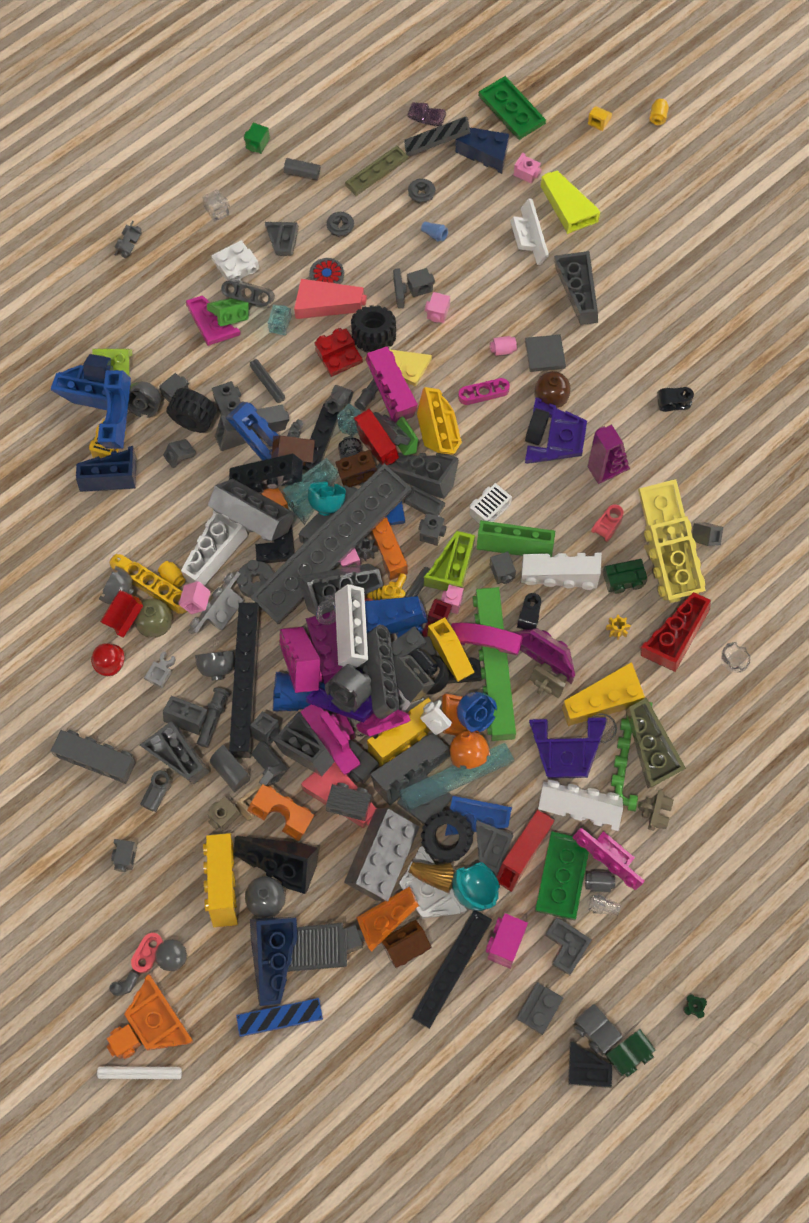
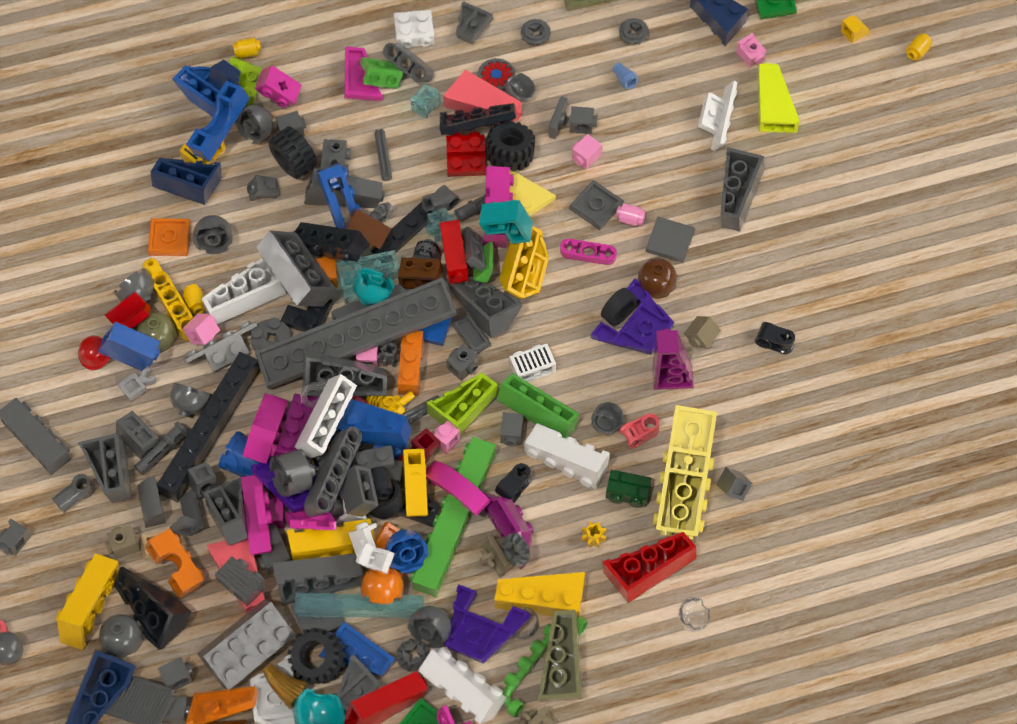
camera: 25 degrees right, 5 degrees down
(99, 336) = (247, 48): none -> yellow brick
(118, 529) = (169, 237): none -> orange tile
(140, 640) = (129, 346): none -> blue brick
(147, 358) = (278, 86): none -> dark pink brick
(158, 510) = (212, 234): none -> dark grey cylinder
(332, 908) = (176, 673): none -> dark grey brick
(333, 316) = (477, 117): none -> black wing
(354, 275) = (520, 87): none -> dark grey hair
(412, 390) = (507, 218): none -> teal brick
(458, 730) = (374, 558): none -> white bracket
(469, 349) = (596, 204): none -> dark grey tile
(518, 804) = (404, 659): none -> dark grey gear
(527, 765) = (430, 625): none -> dark grey cylinder
(571, 664) = (520, 546): none -> dark grey gear
(577, 524) = (607, 418): none -> dark grey hair
(617, 416) = (702, 332): none -> dark tan brick

